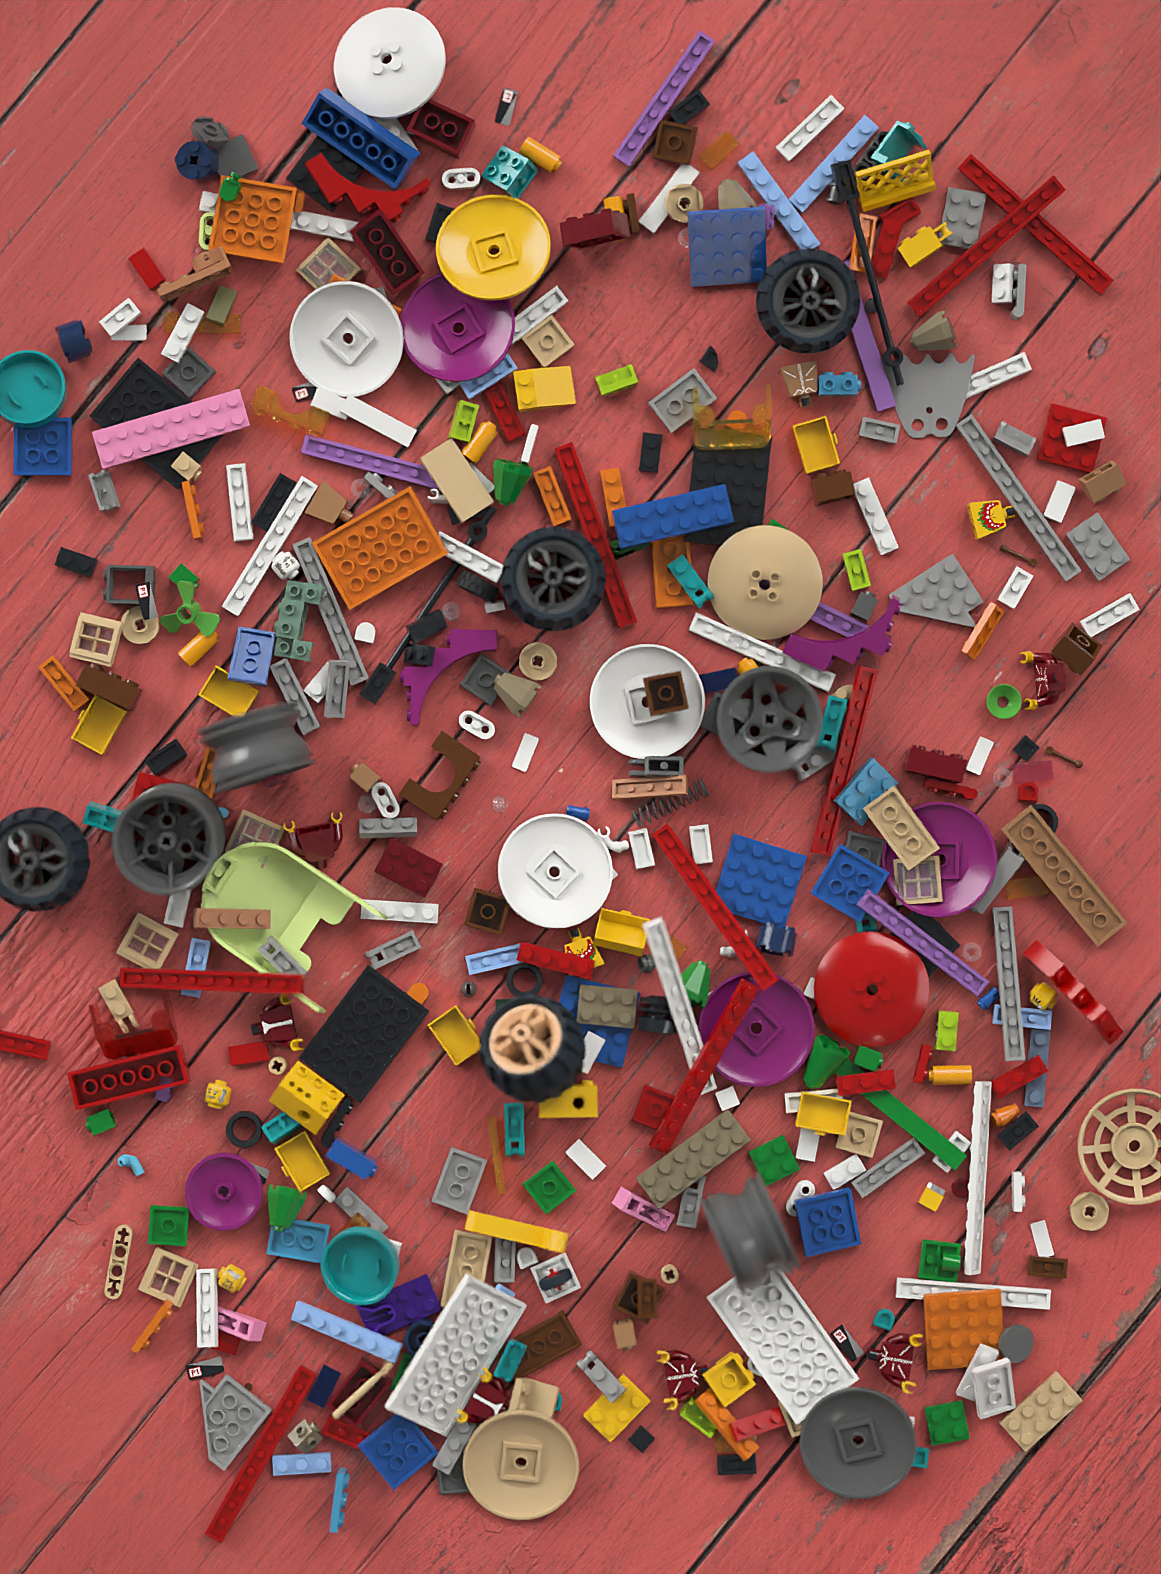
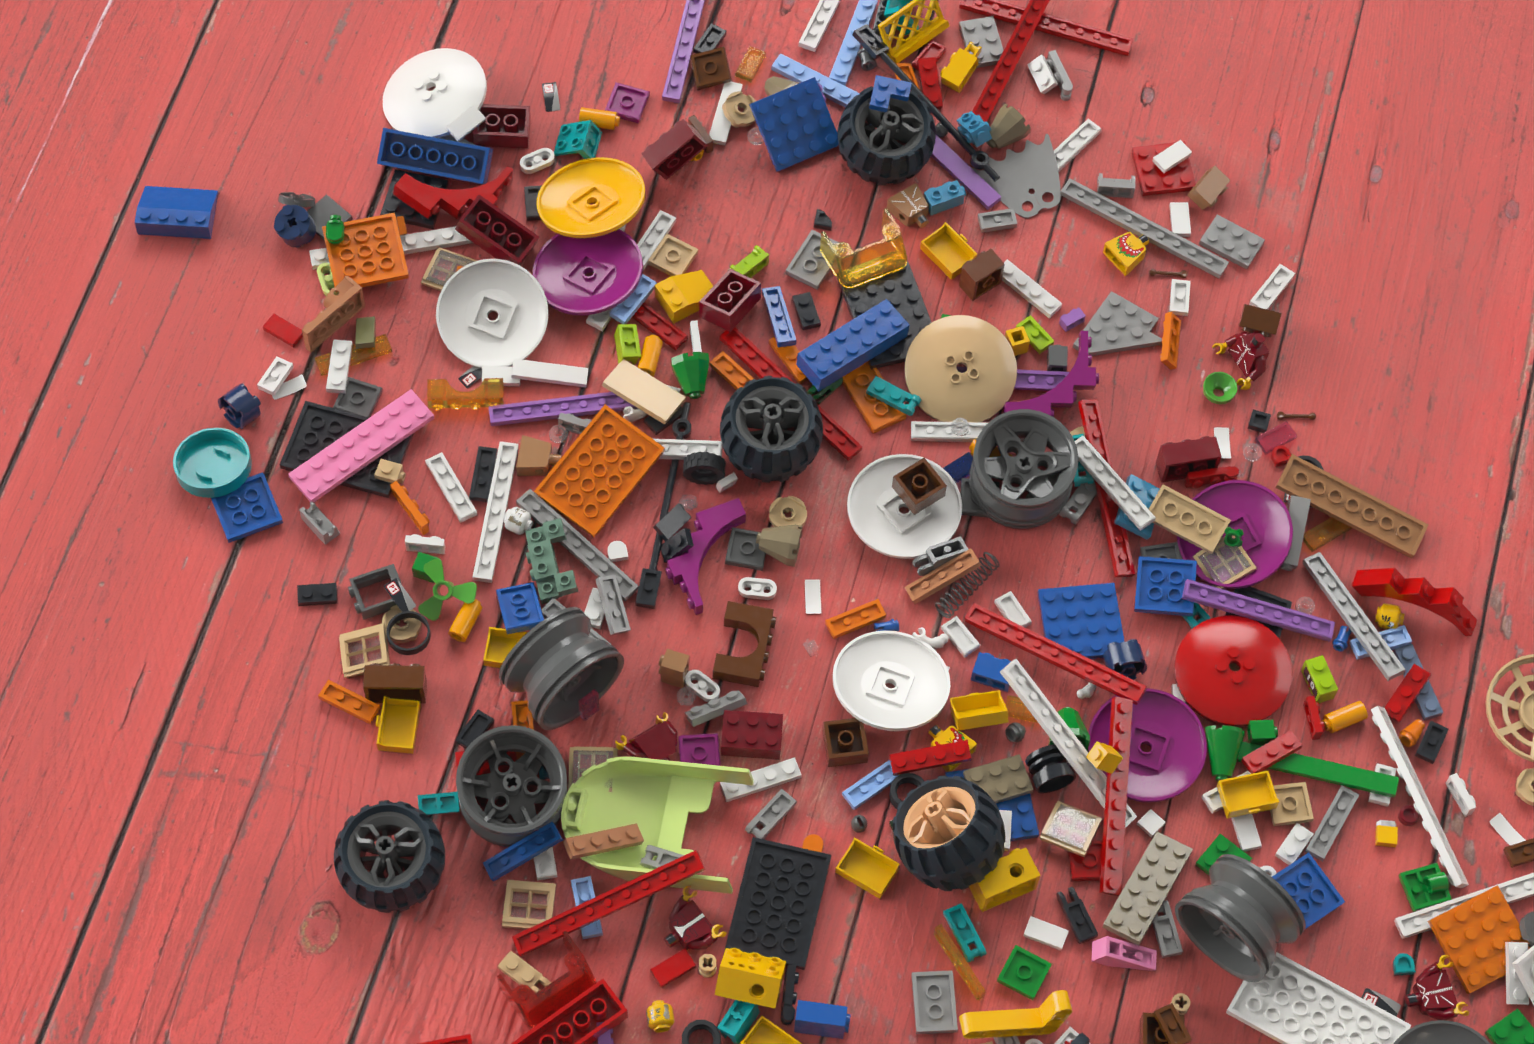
camera: 25 degrees left, 25 degrees down
(93, 93) = (176, 212): none -> blue slope
(121, 640) = (408, 651): none -> black tyre
(138, 898) = (522, 851): none -> blue plate
(185, 549) = (425, 544): none -> white plate
(356, 863) = (699, 749): none -> magenta tile
(402, 117) = (465, 123): none -> white tile
(552, 792) = (855, 619): none -> orange plate
(577, 145) = (628, 102): none -> magenta tile
(578, 417) = (730, 300): none -> dark red brick
(619, 452) = (779, 316): none -> plate
(619, 1157) = (1077, 916): none -> black hinge
(652, 1075) = (1070, 828): none -> clear piece
(653, 897) = (987, 671): none -> blue brick
(705, 1034) = (1104, 757): none -> yellow brick
(820, 265) = (888, 88): none -> plate
(833, 573) = (1018, 340): none -> yellow brick
(847, 763) = (1113, 484): none -> white tile
(899, 568) = (1072, 319): none -> medium lavender piece
(901, 323) = (974, 129): none -> dark azure brick
(933, 865) = (1228, 540): none -> green plate

